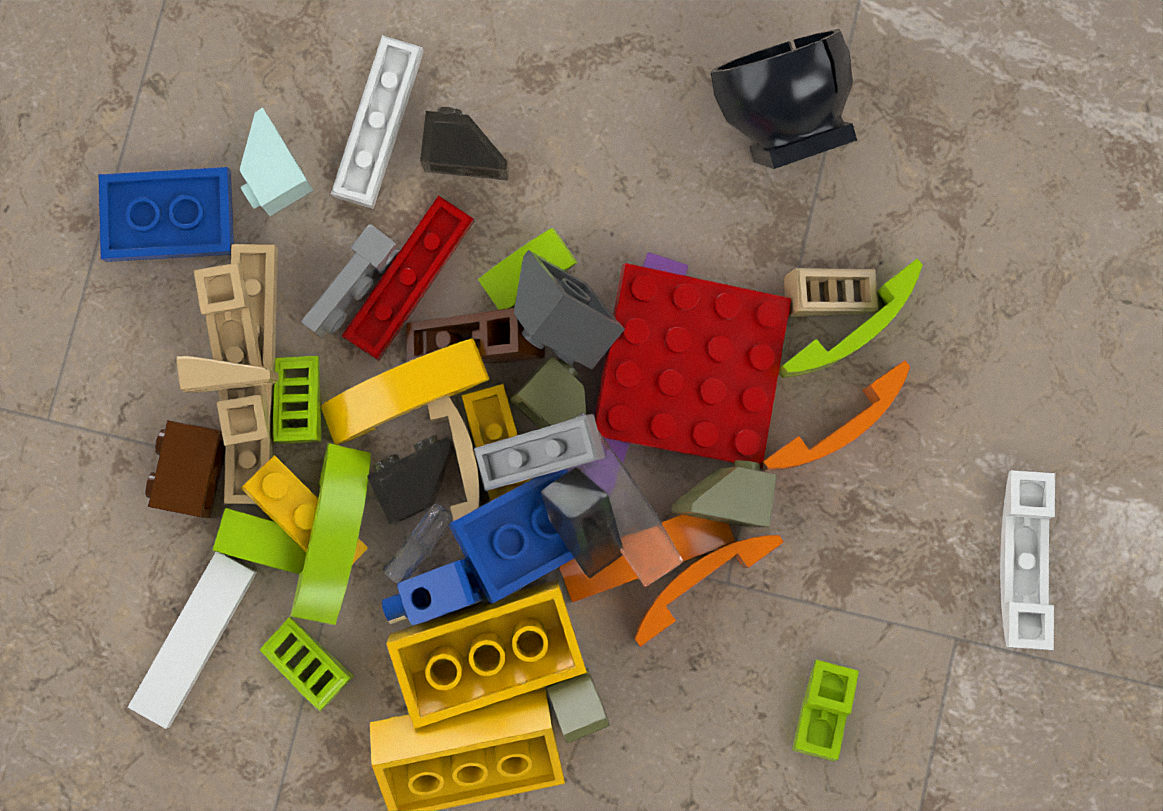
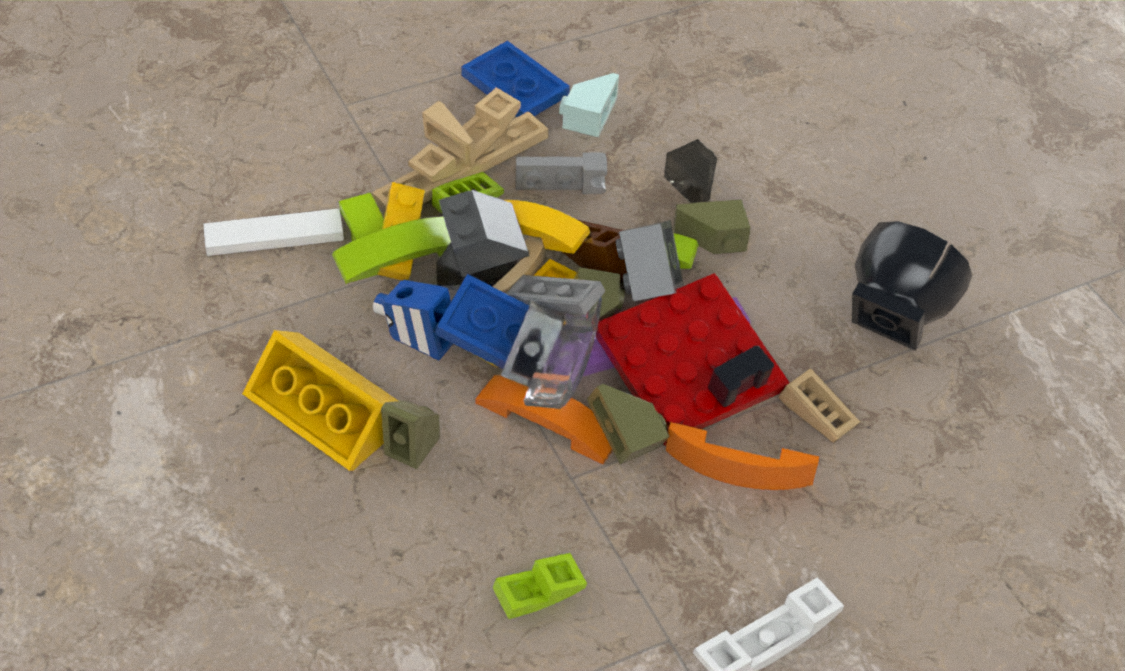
camera: 50 degrees right, 35 degrees down
(186, 469) = (374, 165): reddish brown brick -> none
(319, 699) = (311, 307): lime slope -> none
(377, 122) = (663, 138): white tile -> none
(401, 457) = (482, 231): none -> dark grey slope
(408, 278) = (601, 201): red tile -> none
(485, 654) = (403, 355): yellow slope -> none
(547, 190) = (715, 225): none -> olive slope
(657, 615) = (557, 443): orange slope -> none
(766, 352) = (740, 374): none -> black piece
(892, 293) = (811, 434): lime slope -> none

